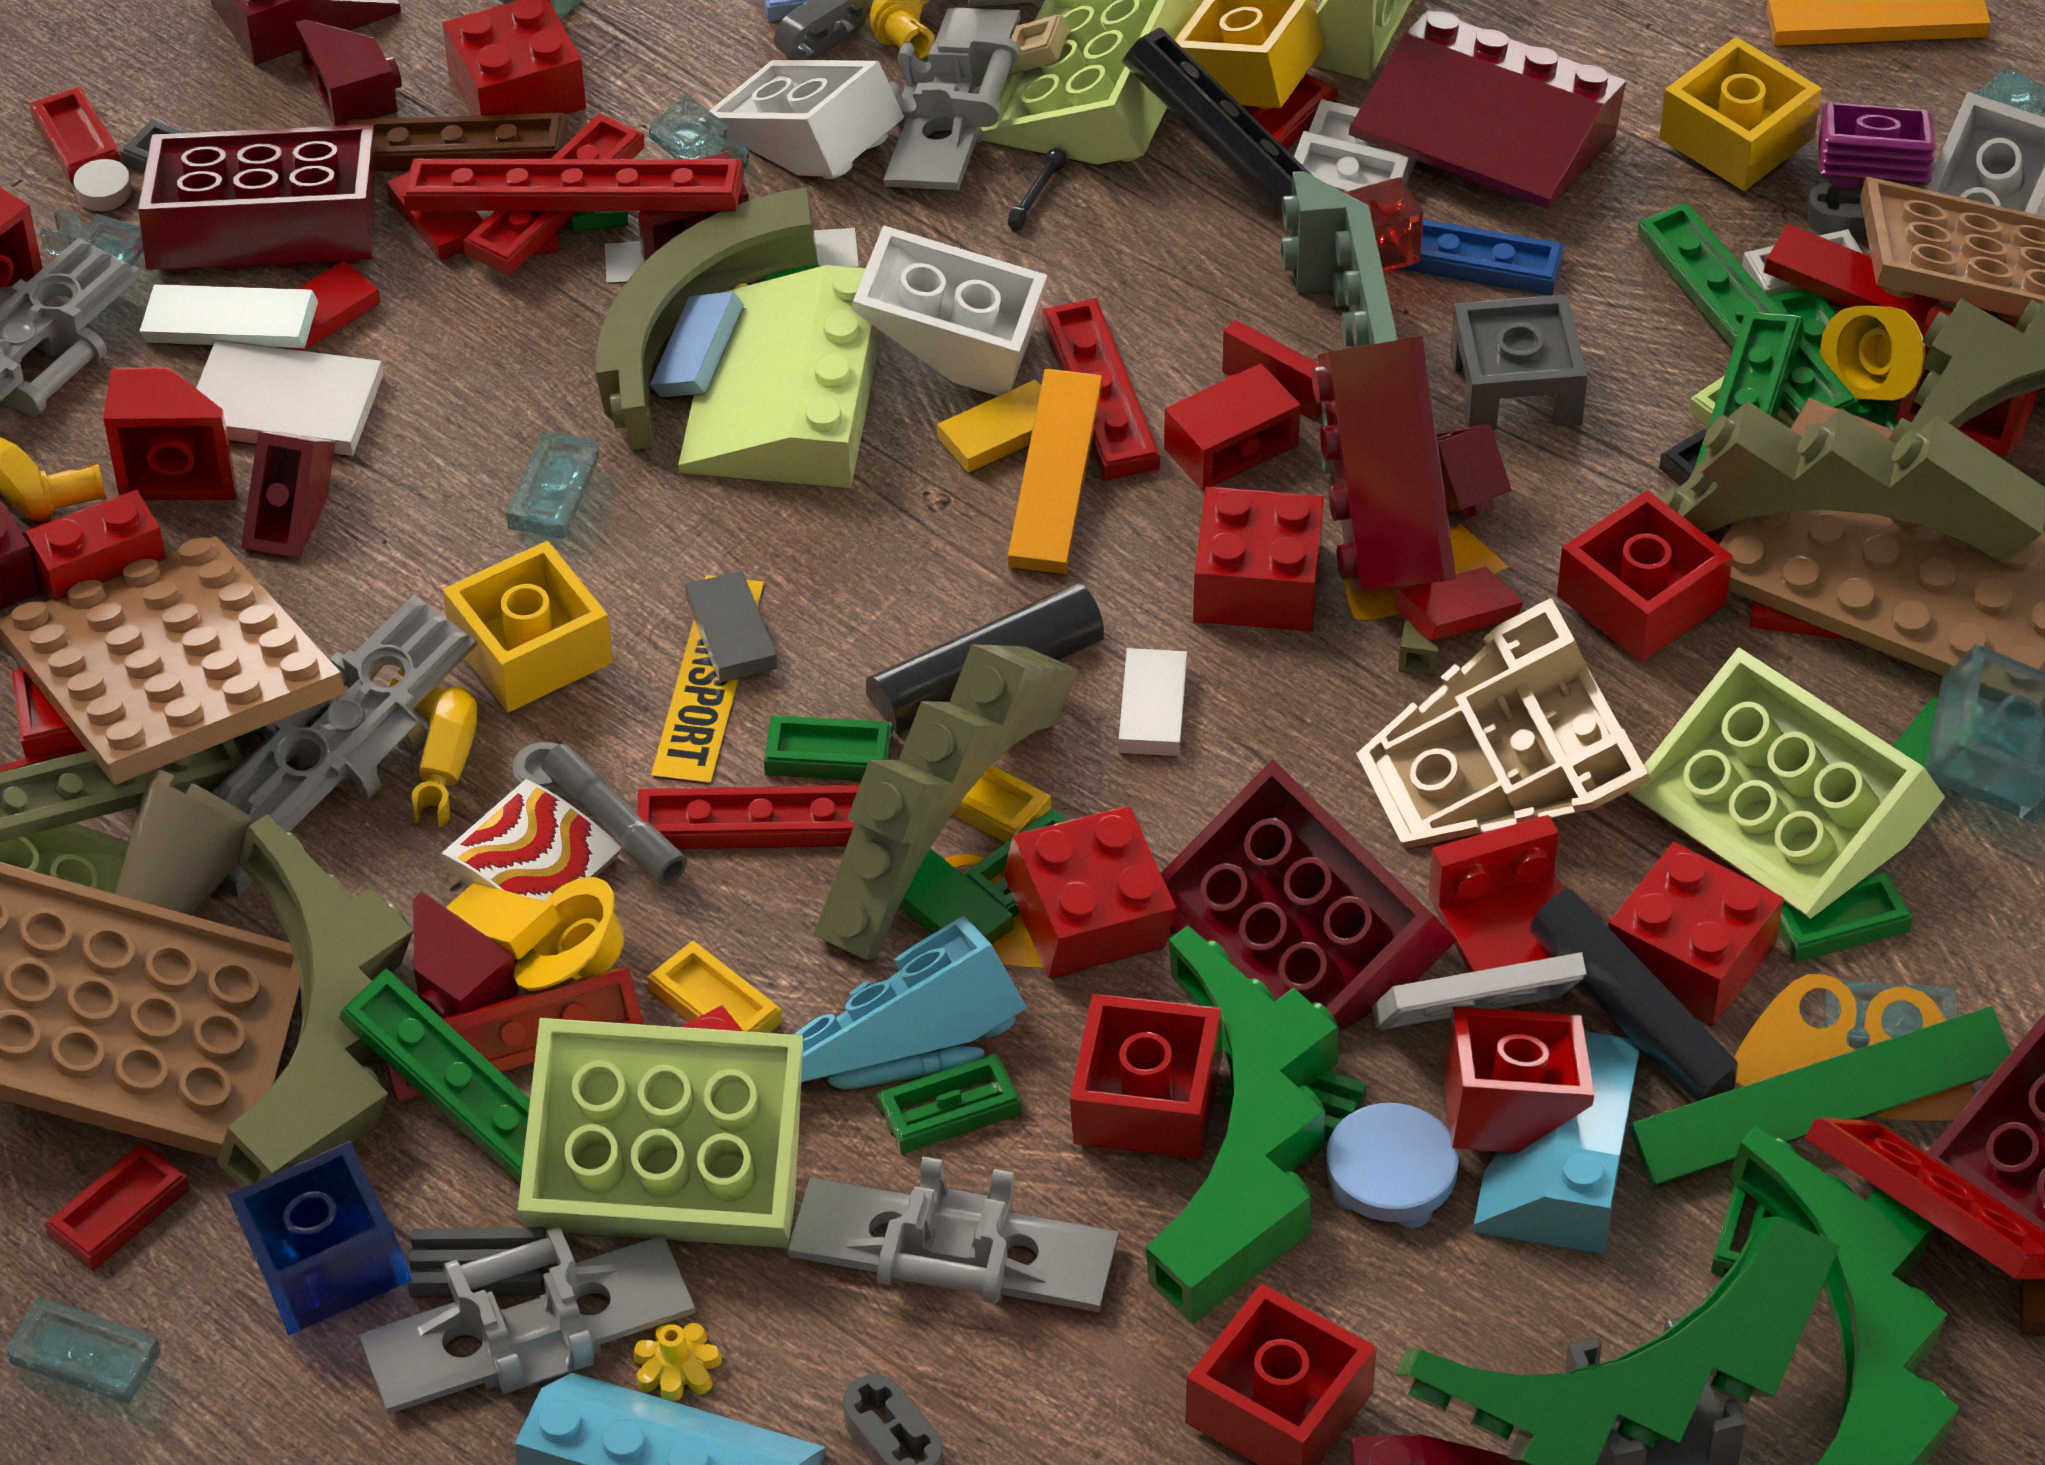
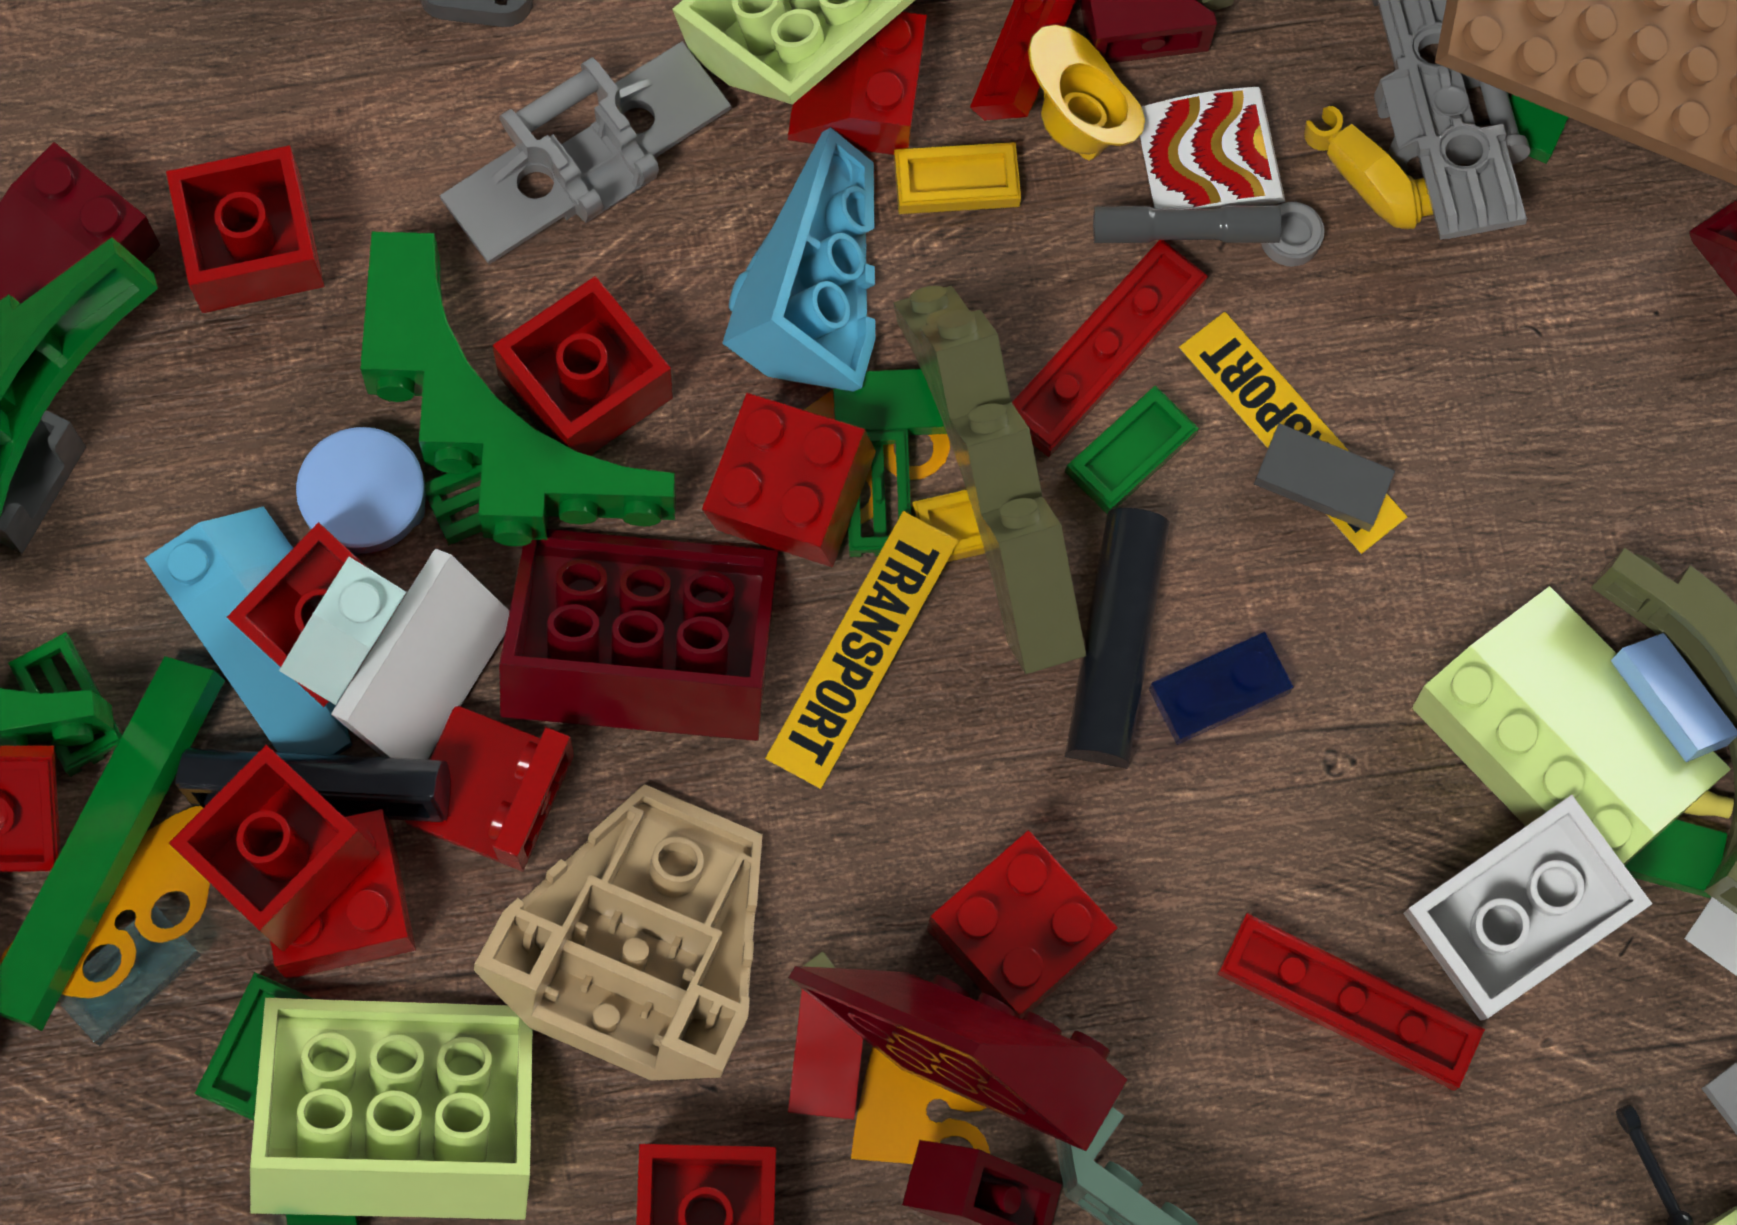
camera: 125 degrees right, 25 degrees up
(506, 917) = (1151, 68): yellow tile -> none
(530, 625) = (1439, 305): yellow brick -> none
(552, 485) = (1602, 464): clear light blue plate -> none
(953, 1111) = (695, 298): green tile -> none
(955, 584) = (1220, 688): none -> clear blue plate
(992, 427) = (1372, 878): yellow tile -> none
(1055, 471) = (1273, 863): light orange tile -> none
(1143, 788) = (861, 650): none -> yellow sticker
(1152, 702) = (957, 726): white tile -> none
(1231, 426) = (1198, 1052): red brick -> none
(1248, 347) = (1231, 1153): red tile -> none
(1512, 1007) = (342, 630): none -> light aqua slope
(1716, 911) = (274, 848): none -> red brick

